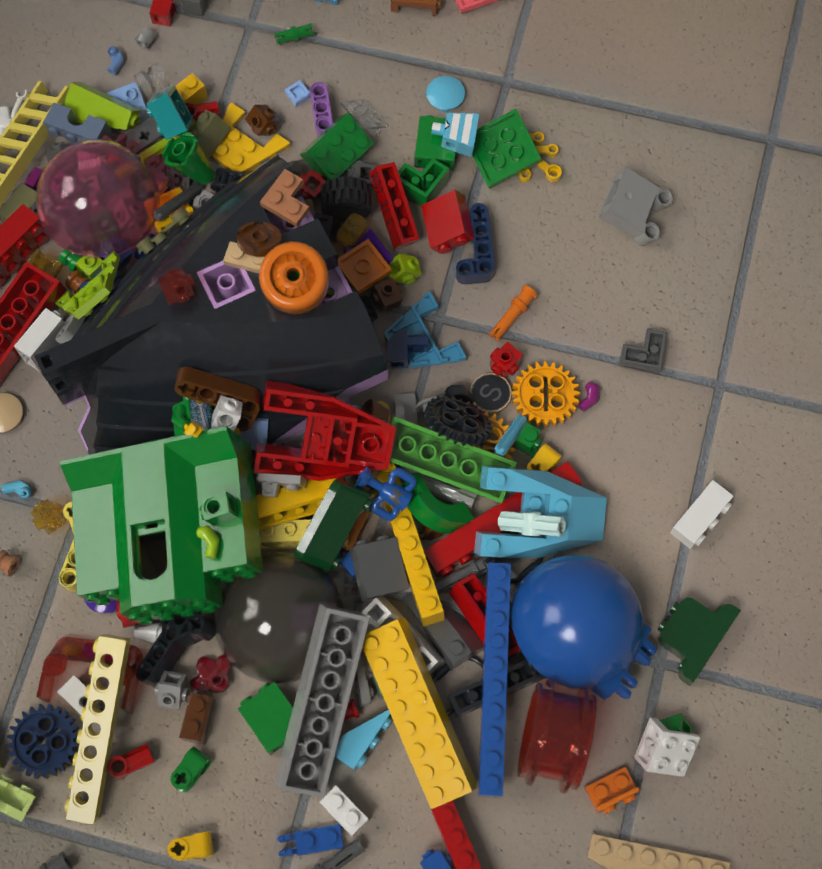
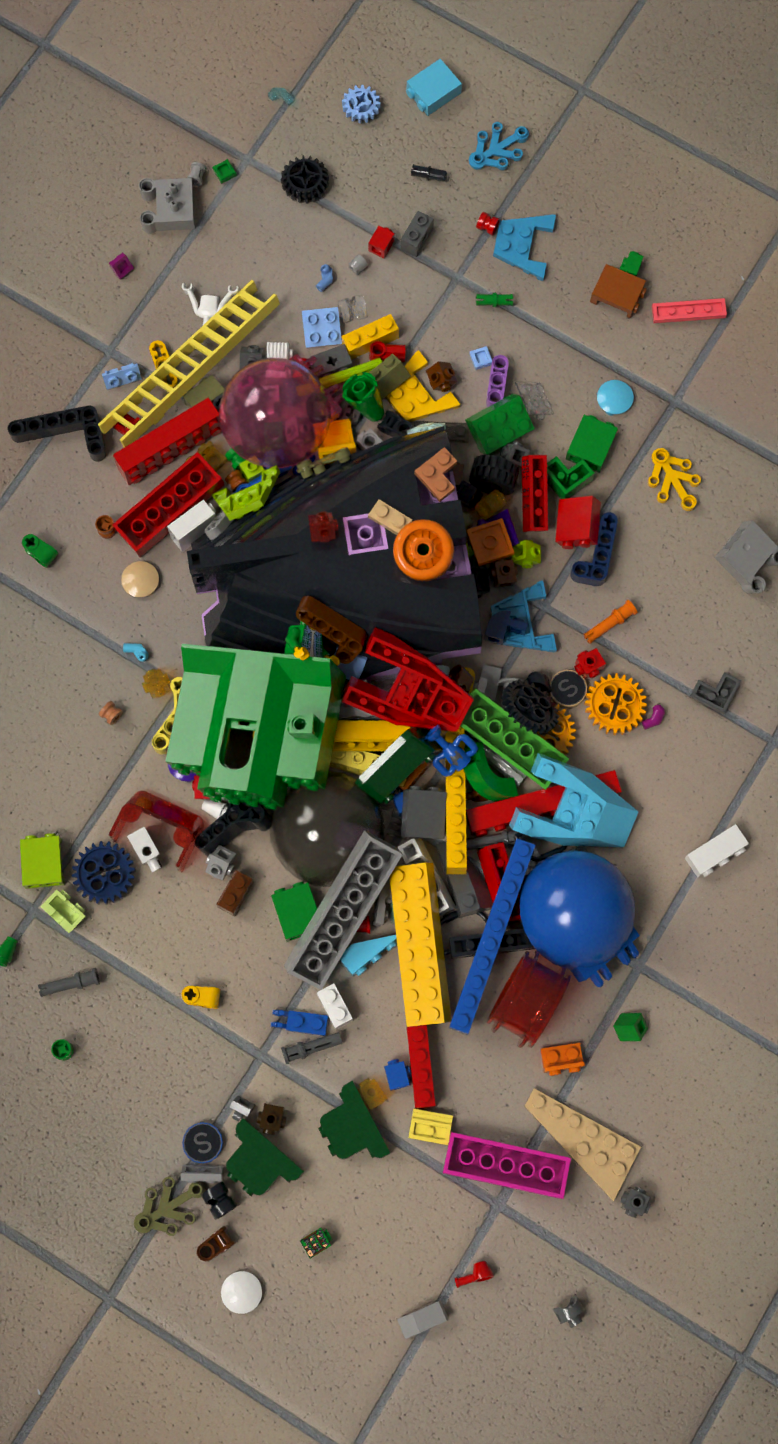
camera: 15 degrees right, 5 degrees up
(33, 178) = (221, 372): magenta tile -> none
(61, 122) = (260, 329): sand blue arch -> none
(75, 806) = (187, 816): light yellow brick -> none
(89, 101) = (297, 323): lime slope -> none
(132, 760) = (173, 912): red piece -> none
(169, 112) = (360, 349): teal brick -> none
(177, 202) = (344, 433): dark grey axle -> none
(191, 768) = (219, 931): green piece -> none
(210, 672) = (256, 857): dark red plate -> none
(212, 540) = (290, 750): lime arm -> none
(226, 413) = (333, 646): white brick -> none
(258, 238) = (404, 504): reddish brown tile -> none
(272, 483) = (354, 715): light grey hinge -> none
(312, 178) = (474, 451): red brick -> none
(458, 132) = (613, 441): medium azure torso -> none
(504, 149) = (649, 467): green plate -> none
(510, 435) = (572, 732): medium azure axle -> none
(529, 440) = (588, 741): green brick -> none
(532, 523) = (565, 815): light aqua piece -> none
(545, 459) = (595, 762): yellow piece -> none
(665, 750) = (618, 1039): white bracket -> none
(694, 634) = (675, 951): dark green brick -> none

